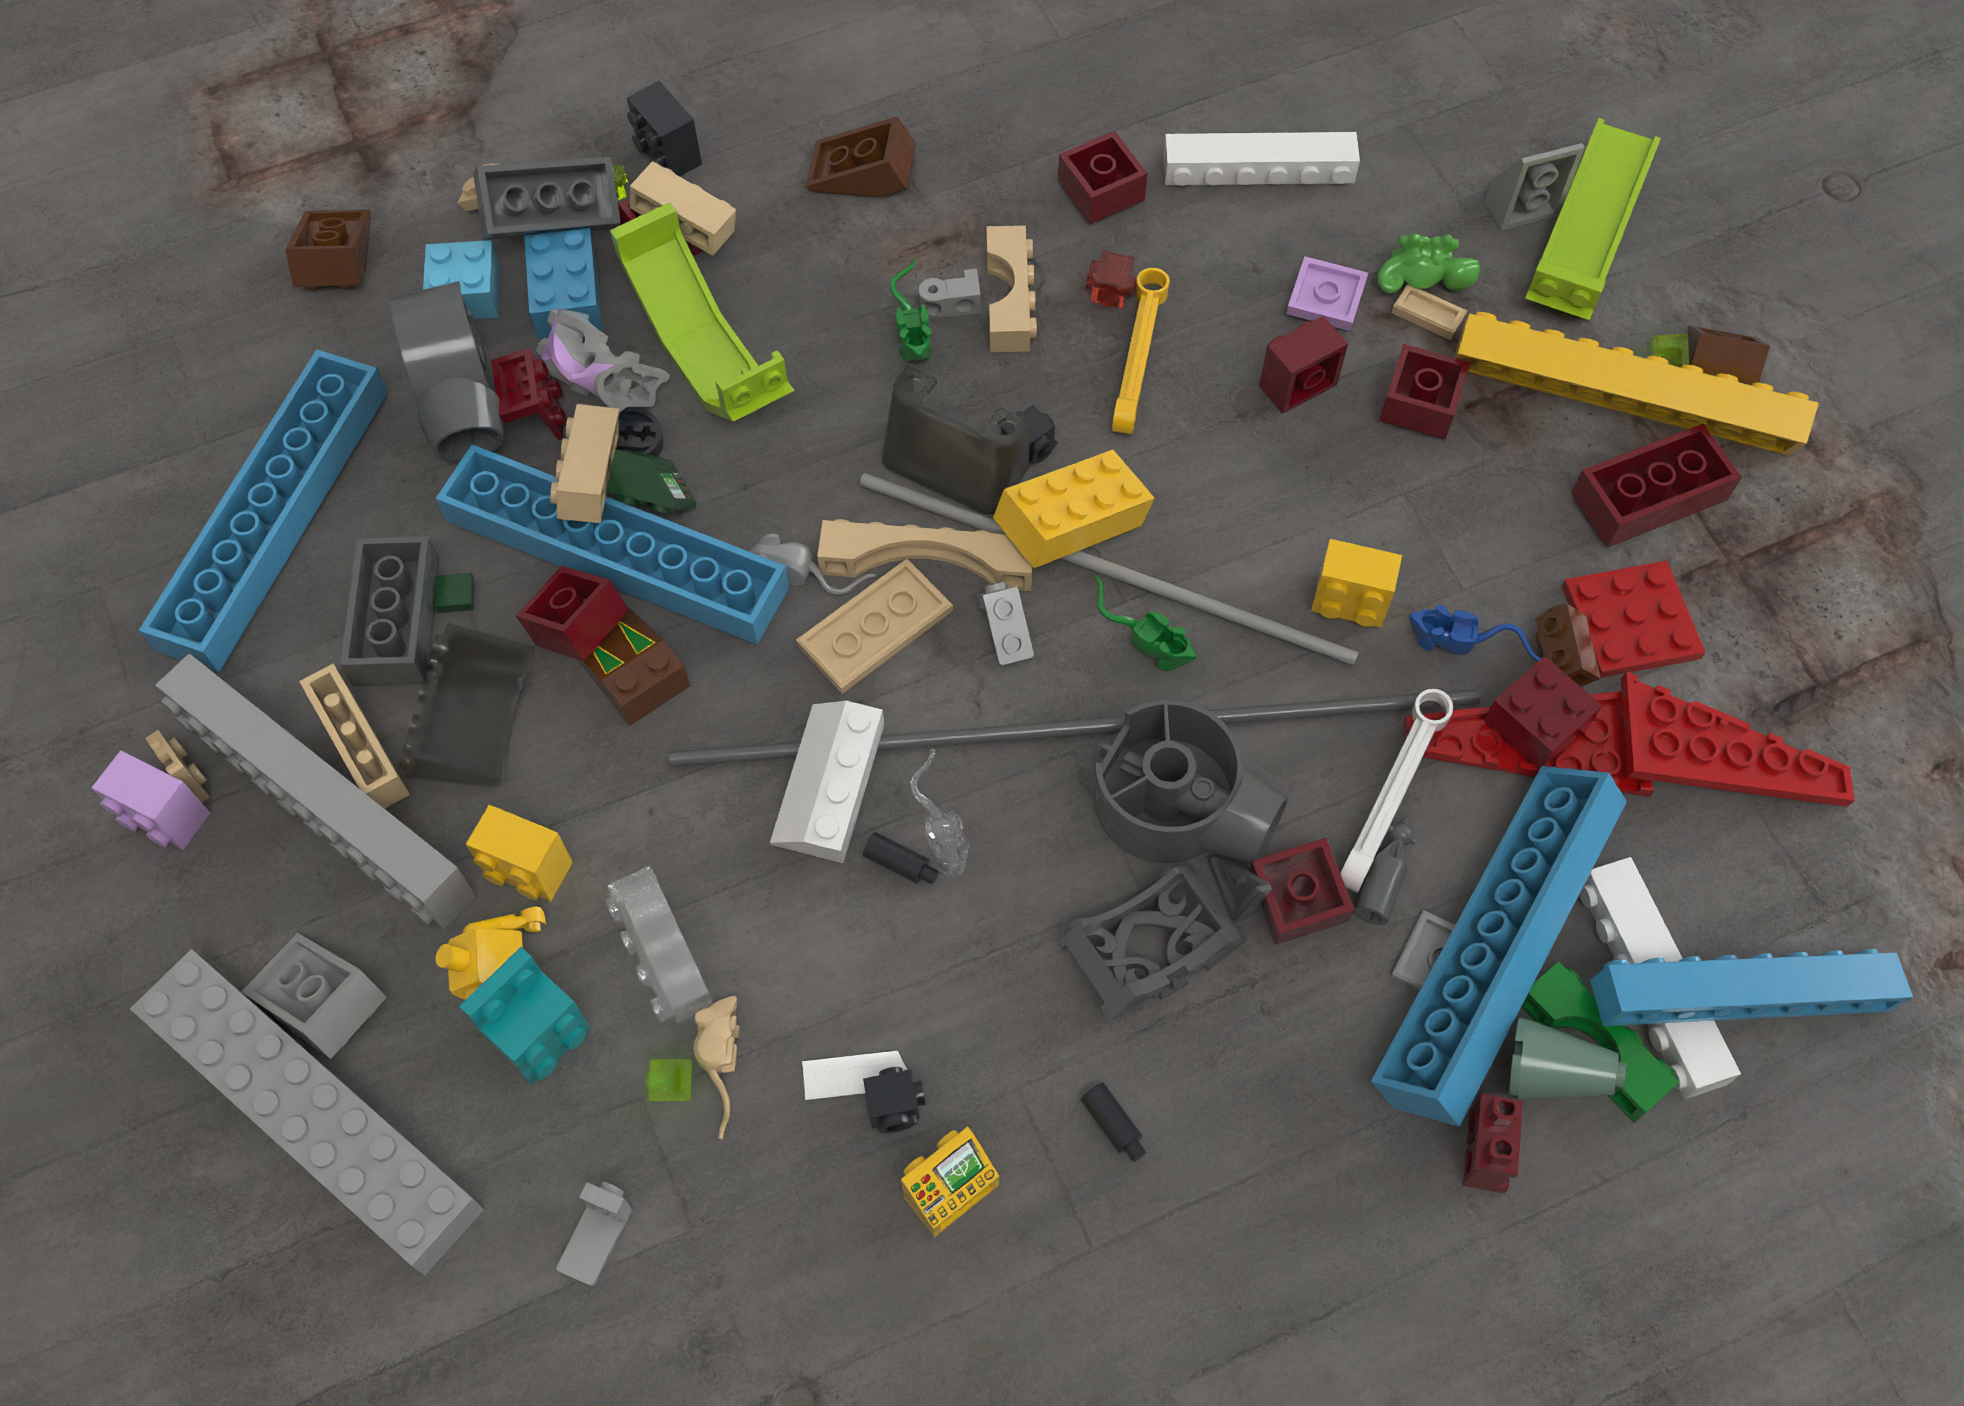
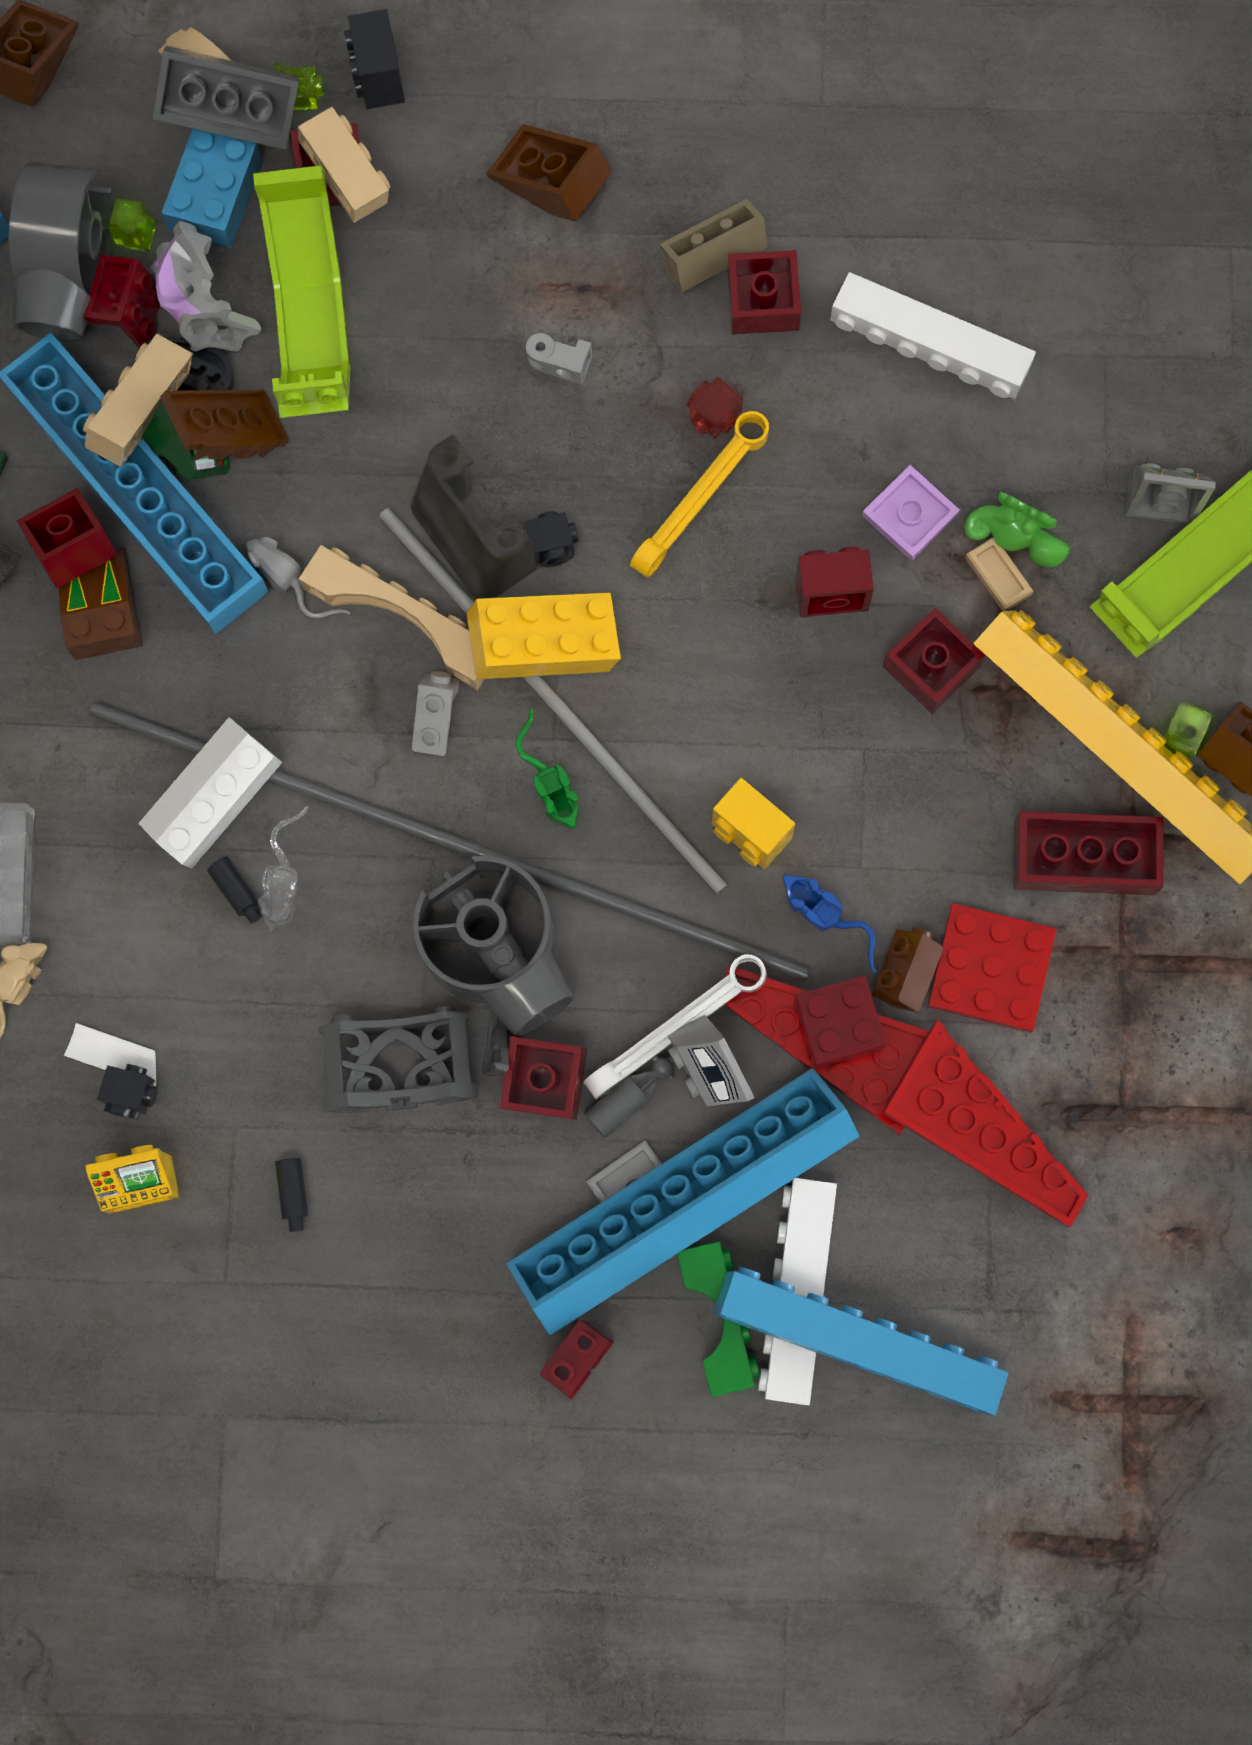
camera: 30 degrees right, 15 degrees up
(474, 266) = (123, 144): medium azure brick -> none
(501, 336) = (131, 225): none -> clear neon green brick
(680, 450) = (225, 422): none -> reddish brown piece
(874, 625) = (324, 662): tan tile -> none
(911, 324) = (504, 373): green animal -> none
(1010, 317) = (598, 409): tan arch -> none
(1036, 159) = (705, 247): none -> dark tan brick
(1452, 801) = (709, 1064): none -> light grey slope
(1561, 1065) = (662, 1325): sand green cone -> none

